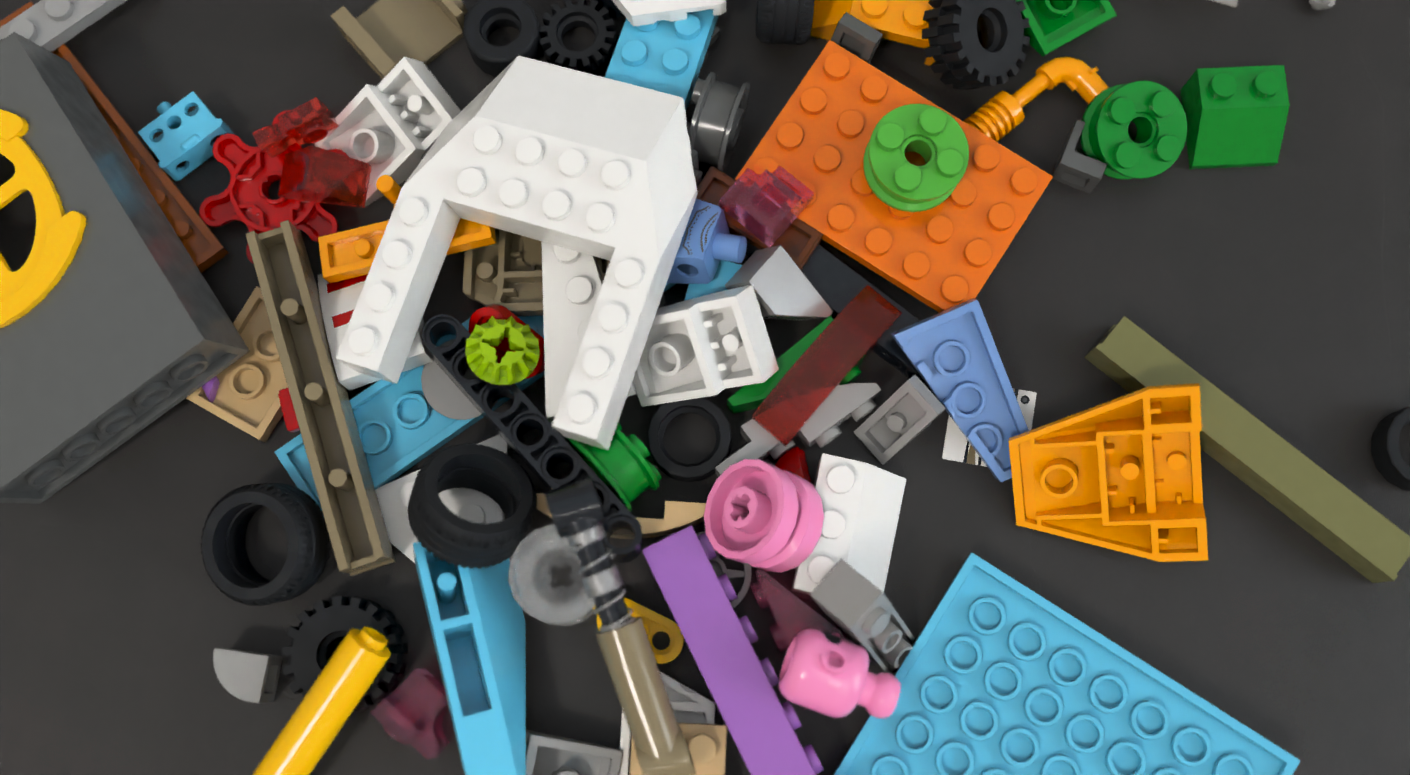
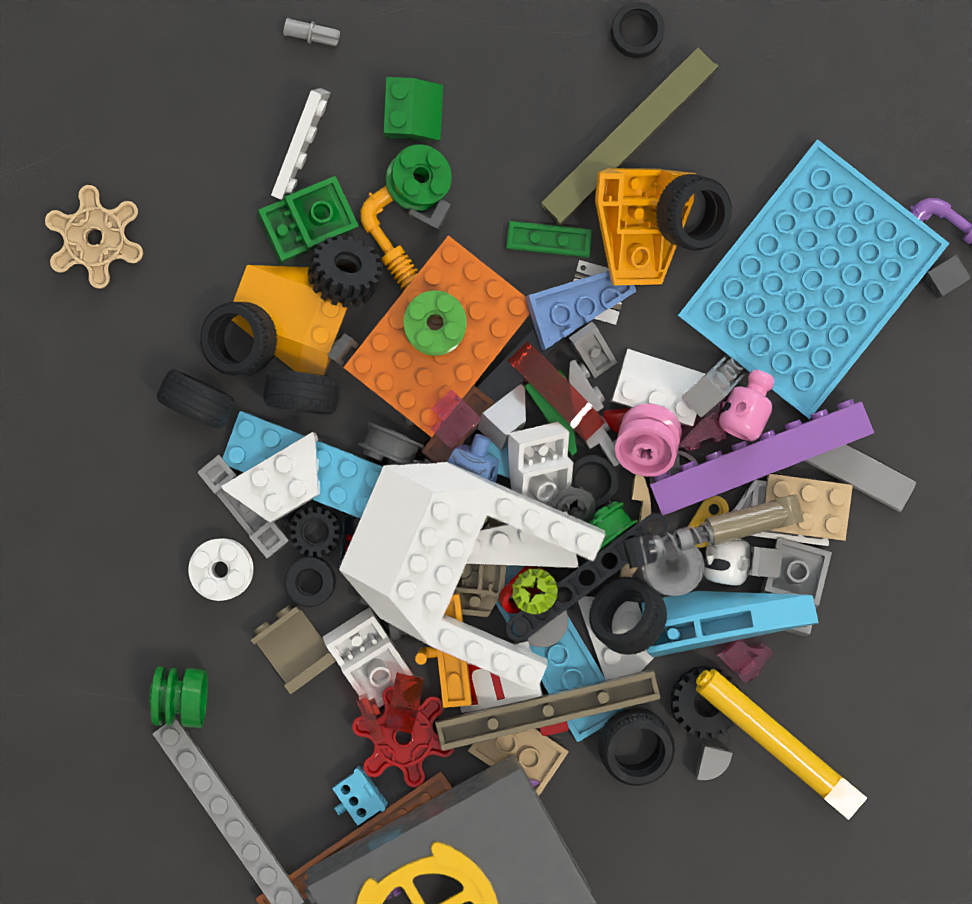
camera: 90 degrees left, 10 degrees up
(572, 668) = (727, 562): none -> white piece
(578, 727) = (765, 562): none -> light grey slope
(644, 424) = (585, 503): none -> dark grey gear
(1063, 342) = (549, 239): none -> green tile
(1153, 601) = (716, 214): none -> black tyre

